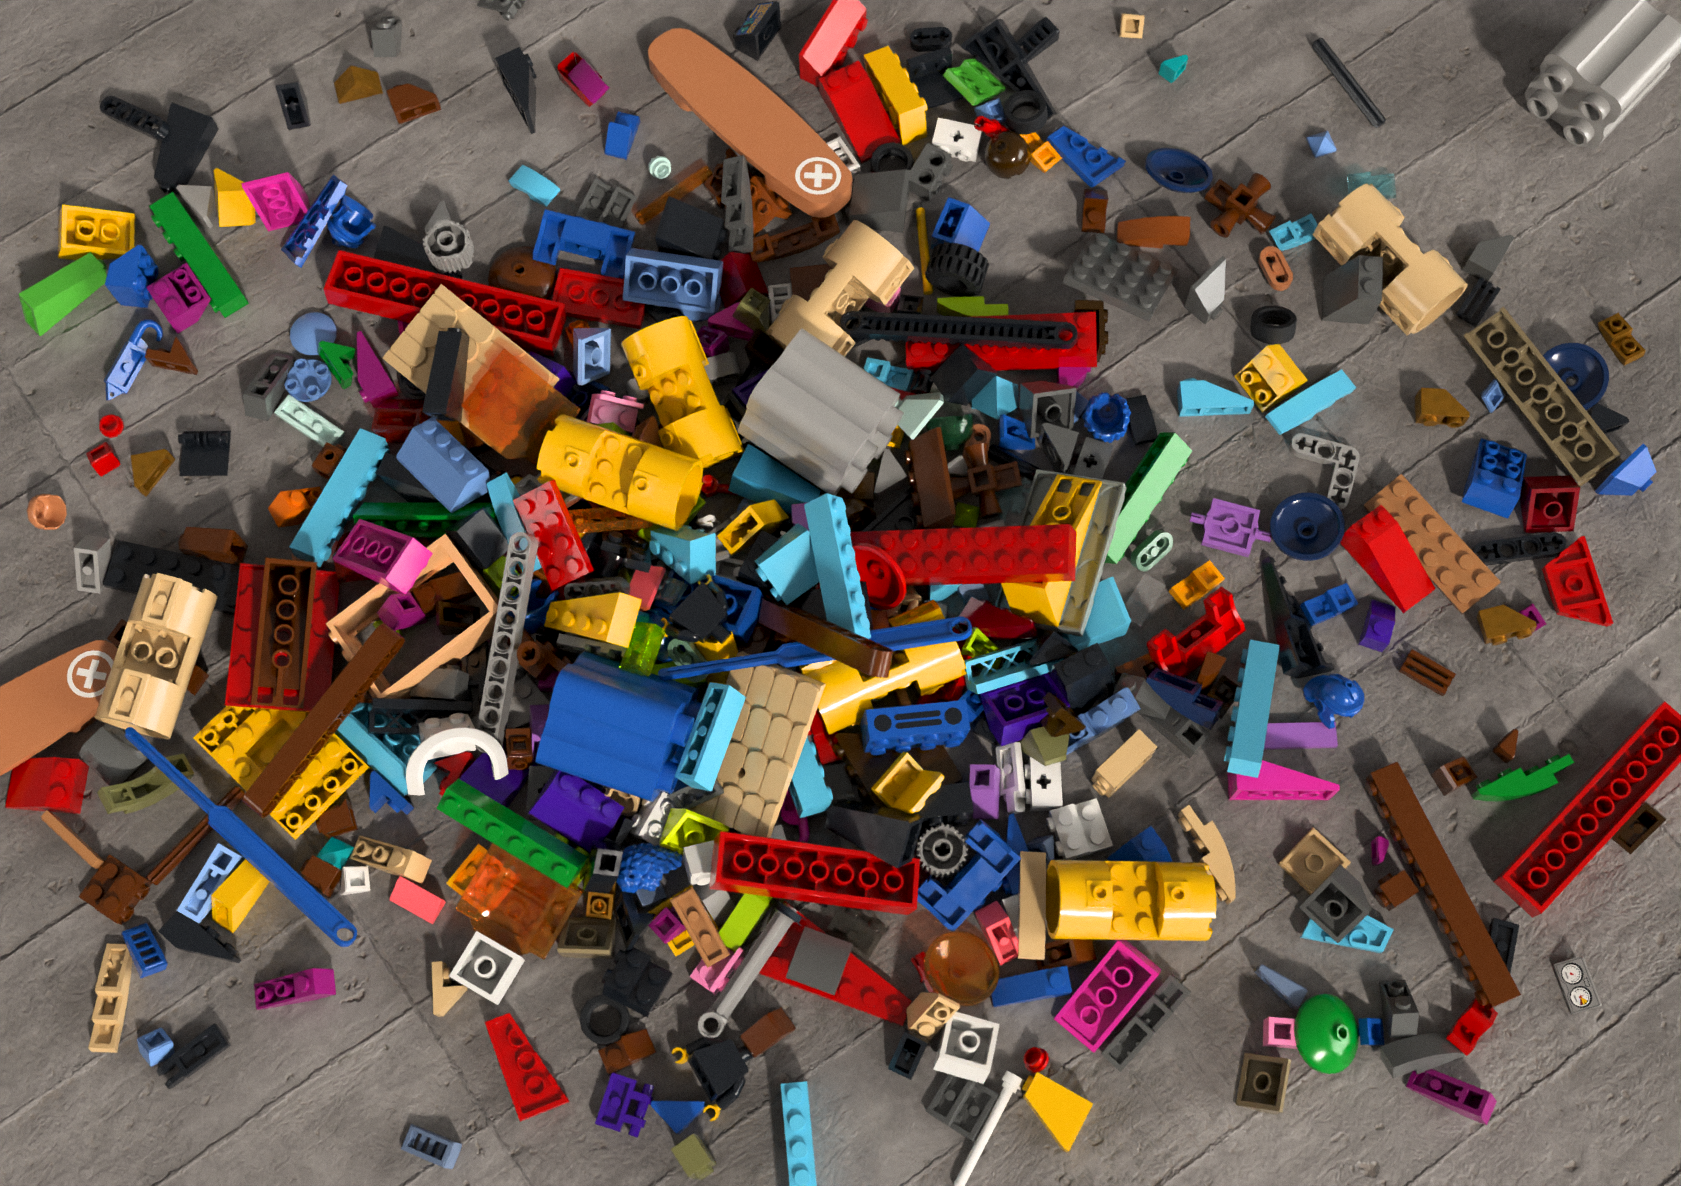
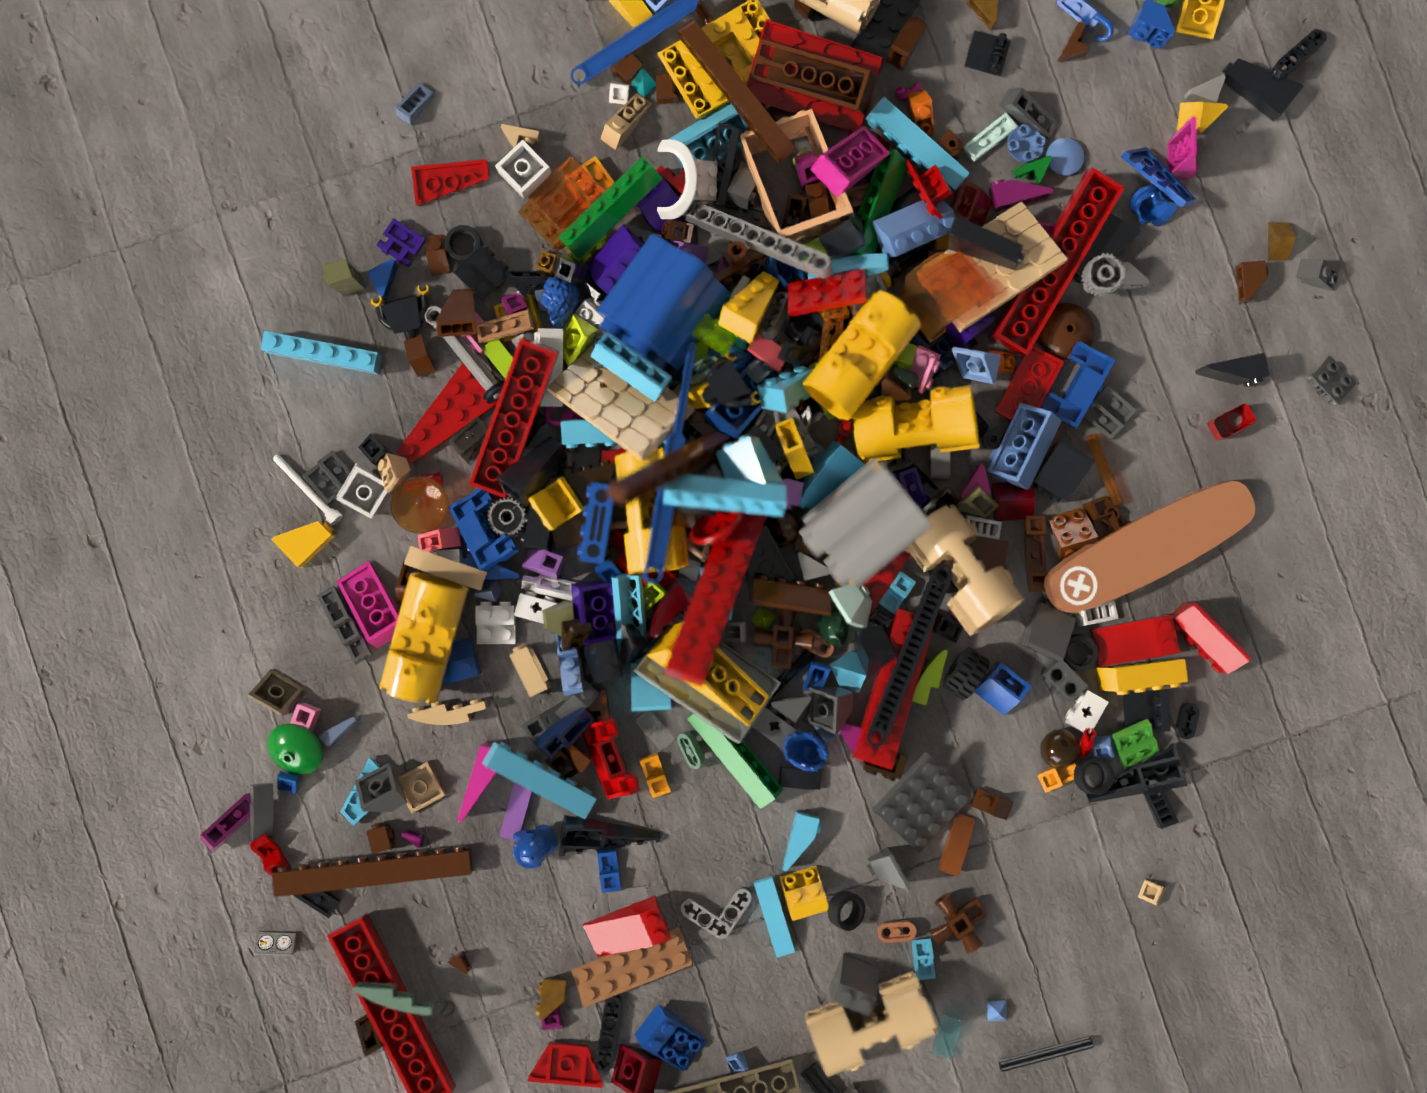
camera: 105 degrees right, 15 degrees up
(180, 297) = (1124, 57): magenta slope -> none
(198, 254) = (1160, 81): green brick -> none
(277, 534) = (901, 92): none -> dark pink arm
(294, 105) = (1274, 184): black slope -> none
(295, 988) = (552, 33): magenta slope -> none
(381, 792) = (676, 125): blue slope -> none
(387, 458) = (932, 187): none -> red bracket
(416, 900) = (589, 134): coral slope -> none
(535, 185) = (1145, 360): medium azure slope -> none
(588, 81) = (1224, 424): magenta slope -> none
(588, 938) = (524, 246): dark tan slope -> none
(621, 135) = (1171, 442): blue slope -> none
(631, 422) = (905, 378): none -> cone
(659, 167) = (1132, 464): light aqua plate -> none
(700, 987) = (457, 315): none -> reddish brown slope
(713, 341) = (965, 461): magenta slope -> none
(738, 202) = (1081, 517): dark grey slope -> none
(758, 29) = (1236, 579): black slope -> none
(819, 960) = (455, 405): dark grey slope -> none
(923, 248) = (1000, 656): yellow bar -> none
(957, 467) = (802, 622): white slope -> none
(1032, 986) = (393, 552): blue slope -> none
(1036, 1059) = (342, 538): red plate -> none
(1084, 159) = (1039, 811): blue wing -> none
(1172, 68) = (1101, 913): teal slope -> none
(1178, 170) = (1003, 883): dark blue dish -> none
(1230, 527) = (691, 817): medium lavender plate -> none
(1312, 514) = (683, 883): dark blue dish -> none
(1378, 626) = (581, 902): dark purple slope -> none
(1398, 1009) = (297, 808): dark grey slope -> none
(1430, 664) = (522, 936): reddish brown tile -> none
(1439, 407) = (739, 1017): pearl gold slope -> none
(1453, 775) = (450, 914): reddish brown slope -> none
(1521, 784) = (429, 956): green slope -> none
(1582, 810) = (387, 995): none -> sand green slope

